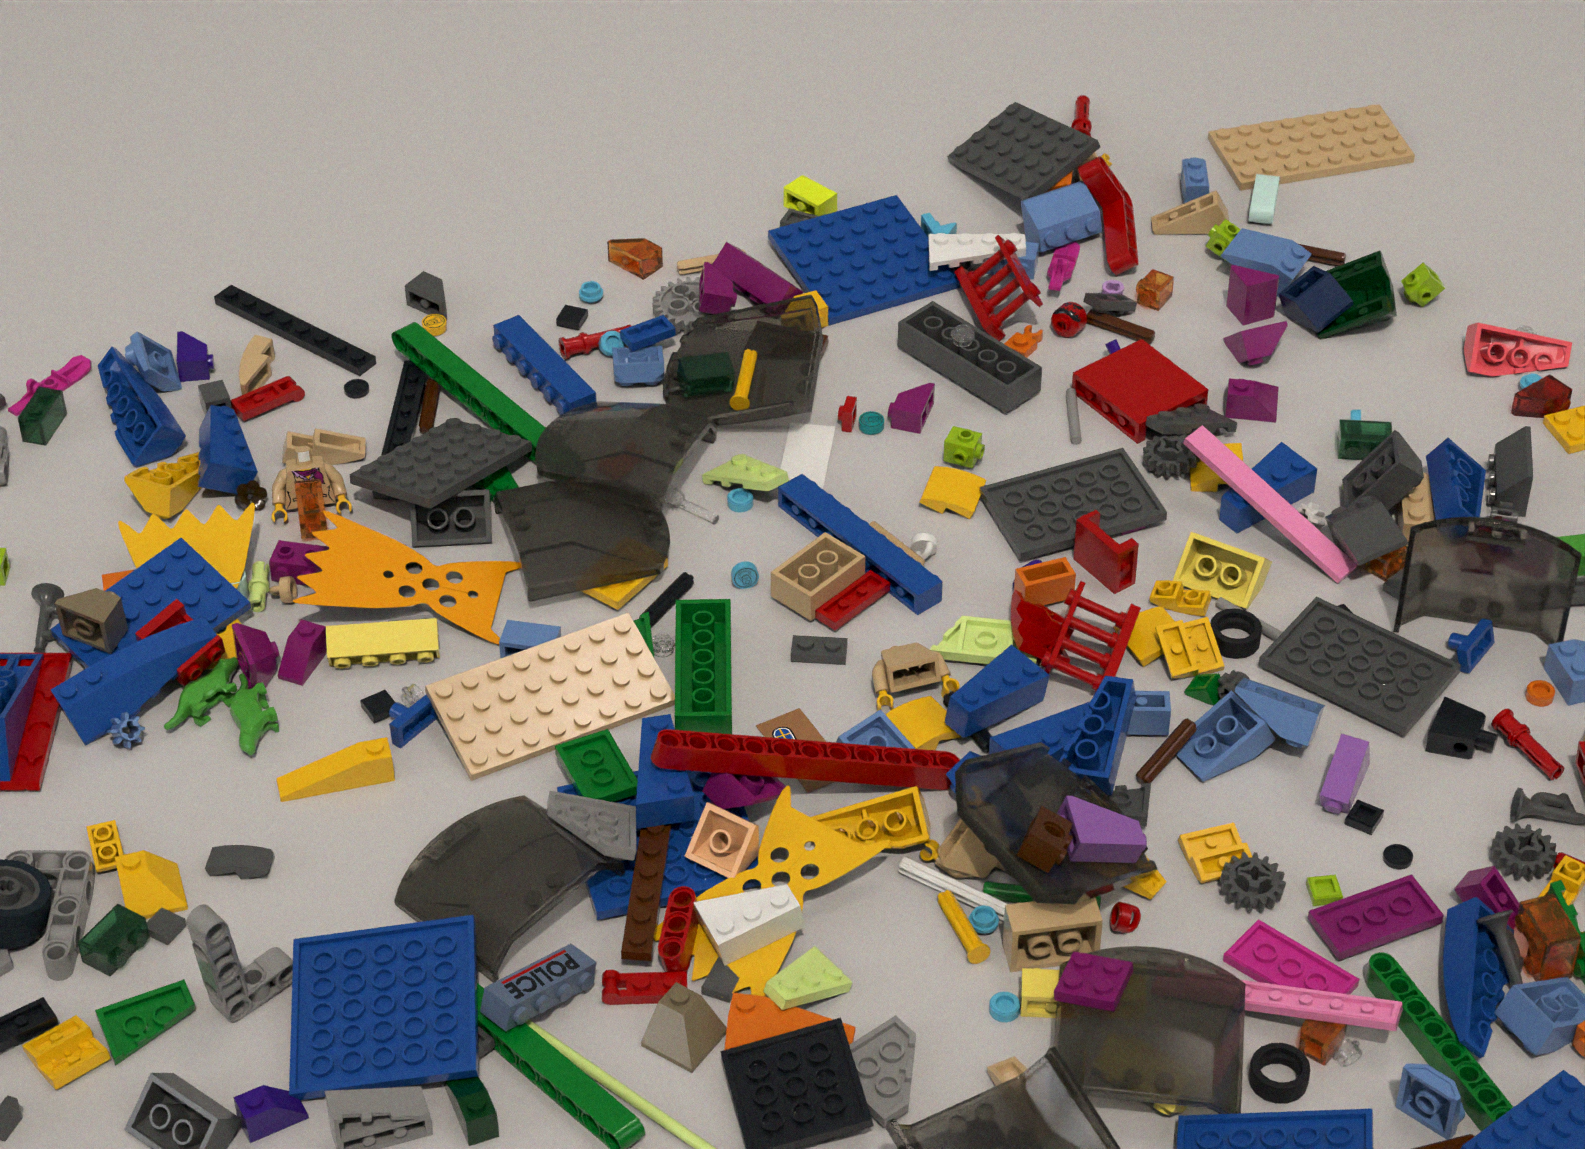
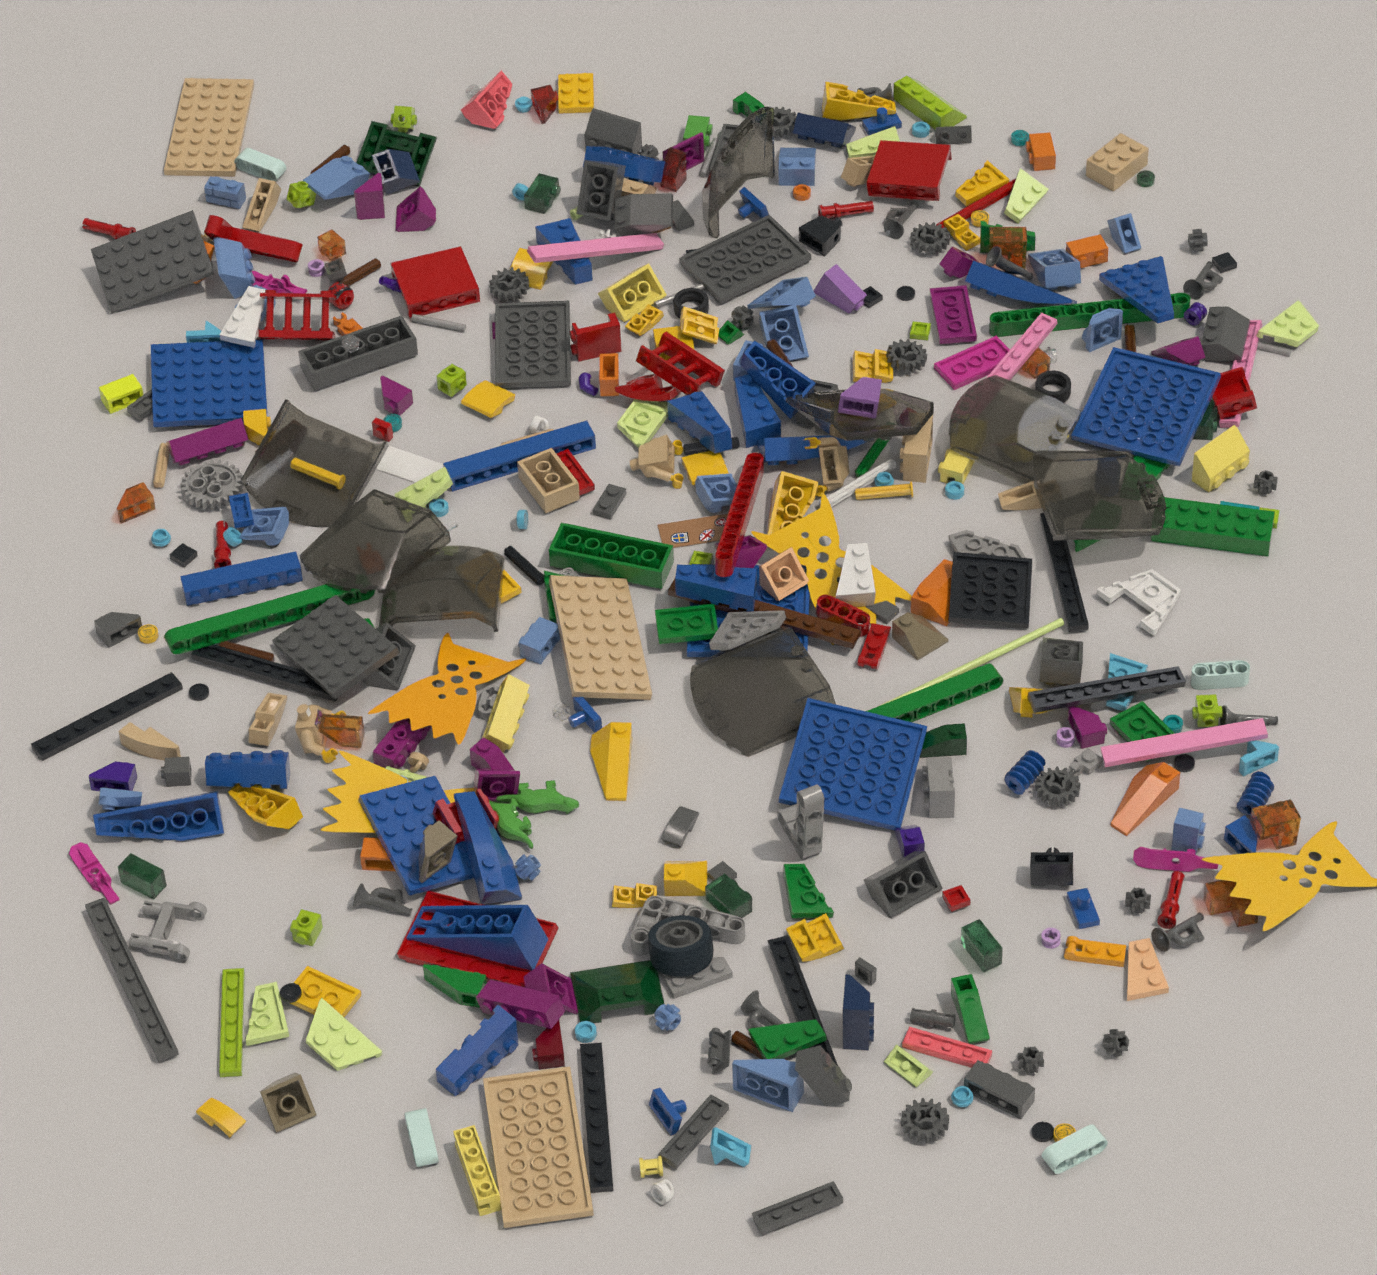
camera: 70 degrees left, 5 degrees up
(257, 494) = (302, 767): dark brown plant -> none
(267, 398) = (188, 741): red plate -> none
(377, 705) = (559, 732): black tile -> none
(538, 987) = (868, 687): sand blue brick -> none
(706, 374) = (307, 488): clear green brick -> none
(715, 291) = (219, 460): magenta slope -> none
(806, 981) = (907, 566): yellowish green wing -> none
(1046, 840) = (870, 415): reddish brown brick -> none
(1093, 981) = (979, 430): magenta plate -> none
(1185, 419) = (484, 264): dark grey wing -> none
(1251, 400) = (468, 236): magenta slope -> none

